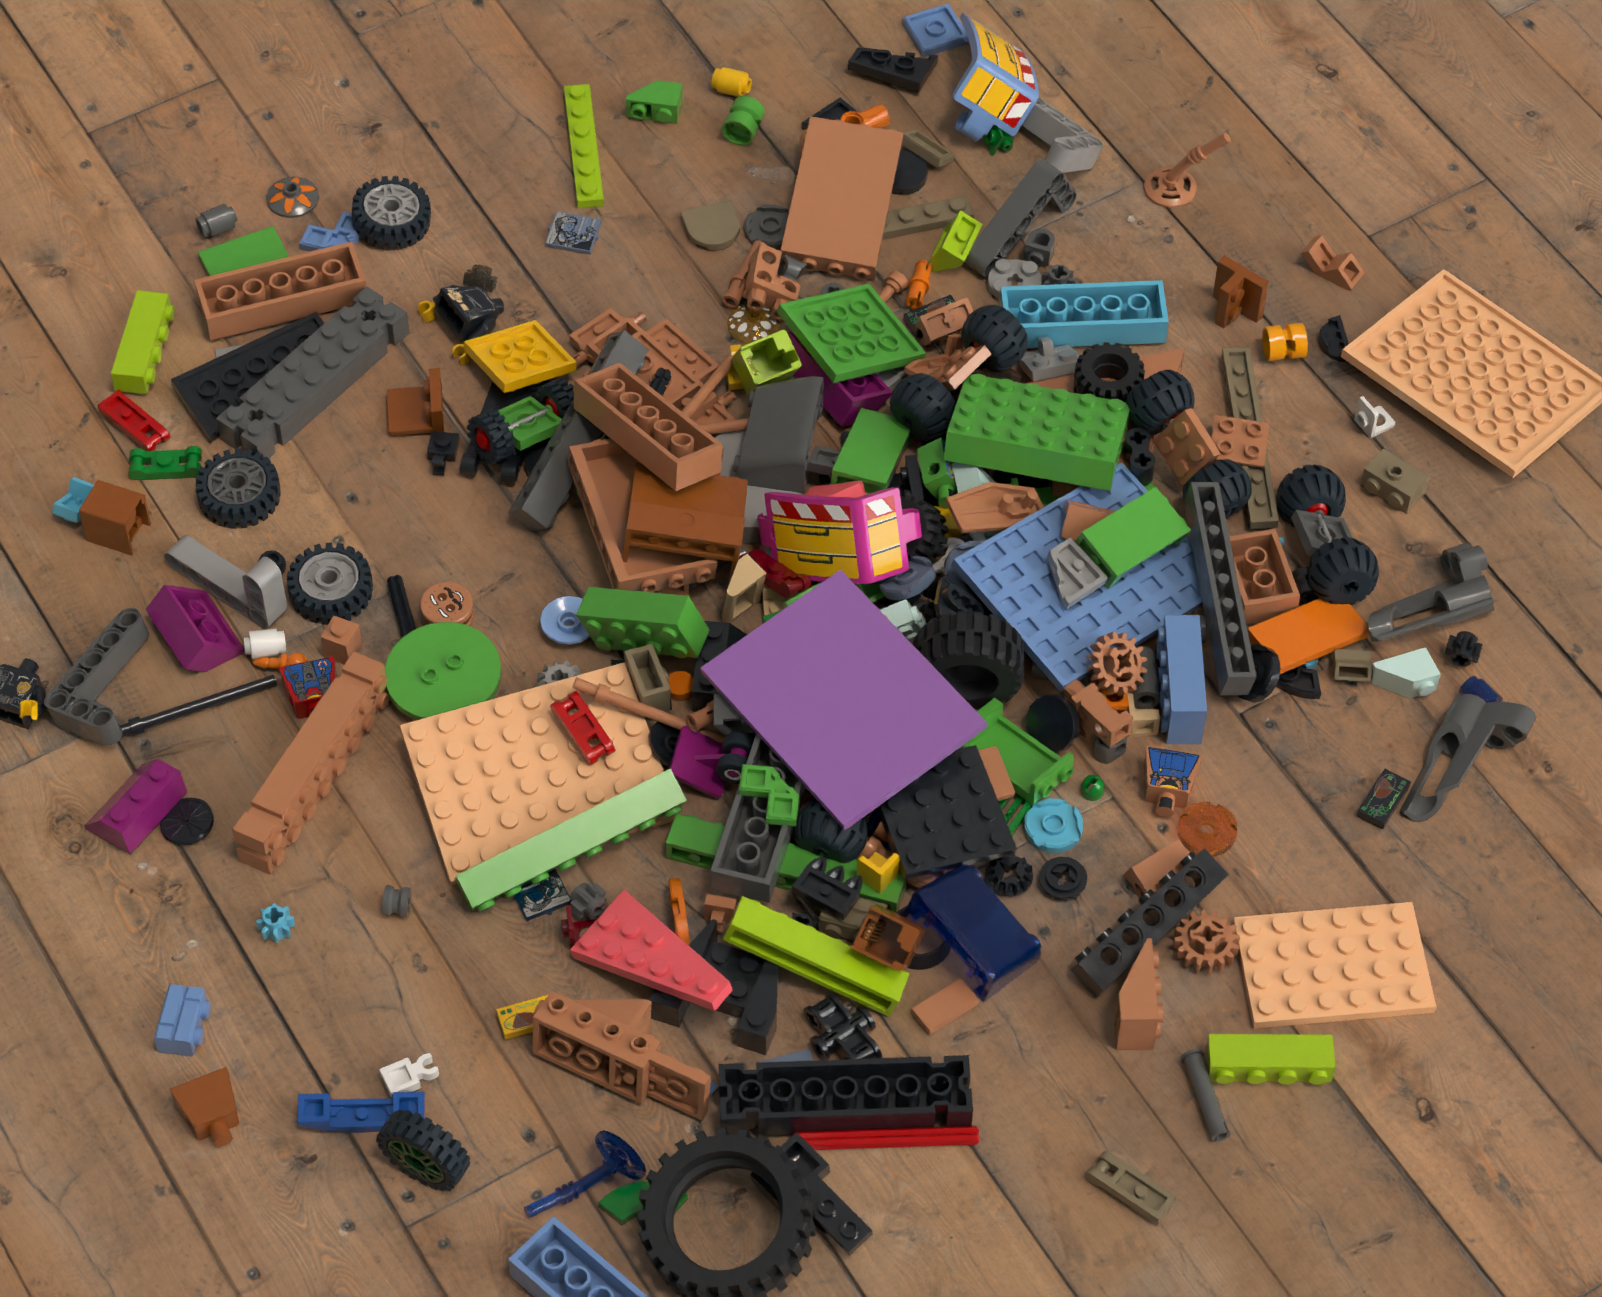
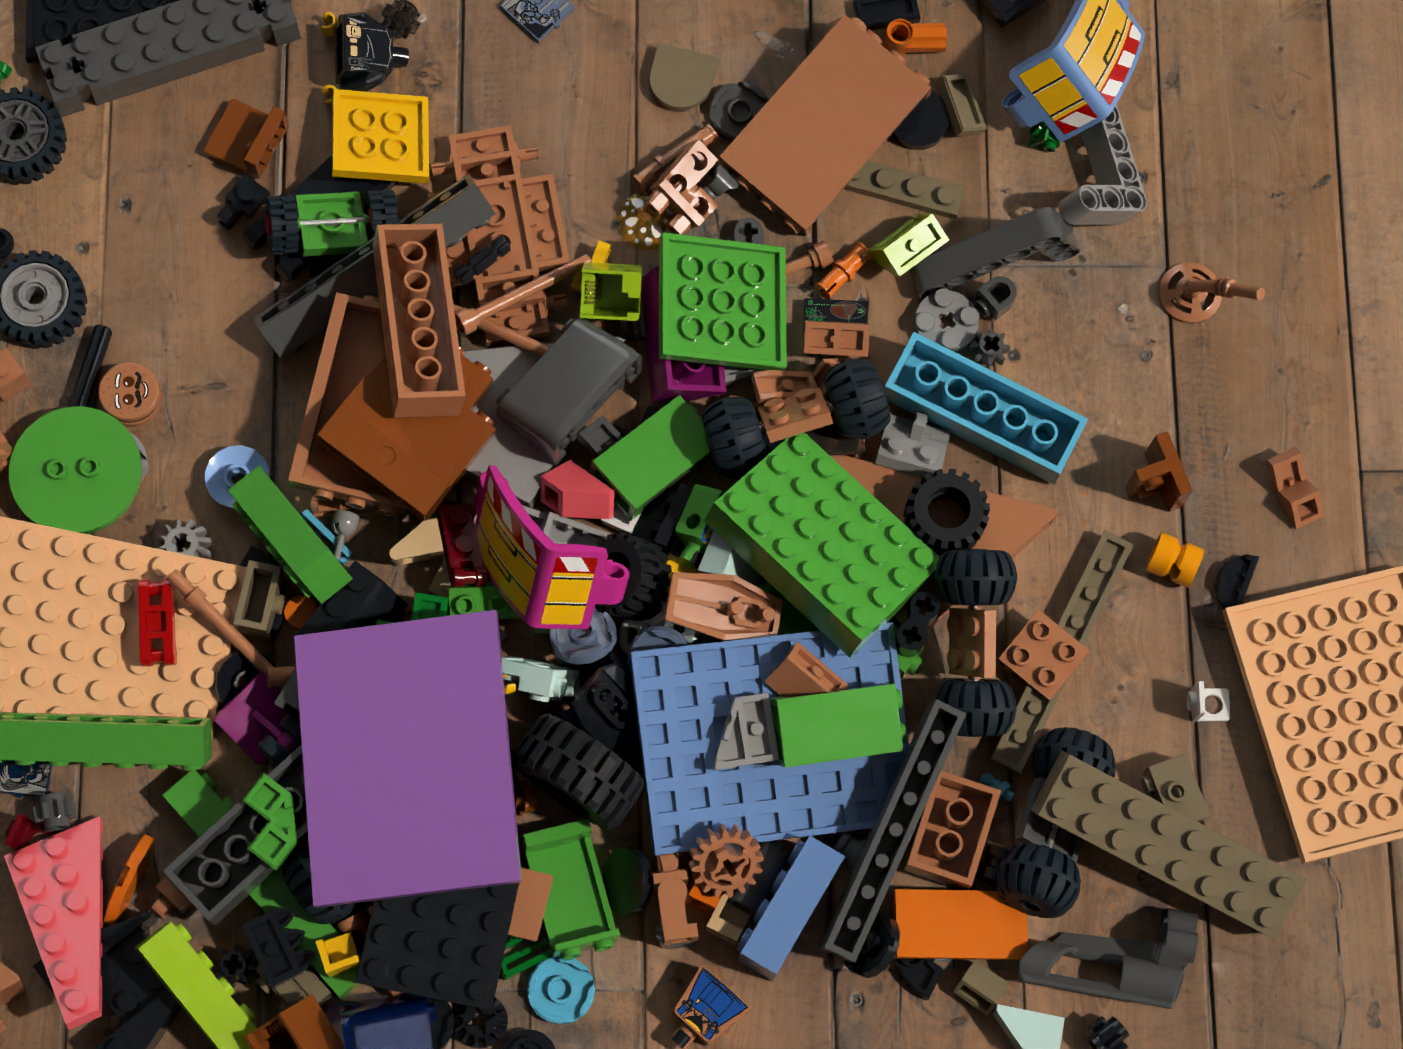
camera: 25 degrees right, 20 degrees up
(1097, 790) = (631, 976): green hinge -> none
(1414, 502) = (1168, 844): none -> dark tan brick

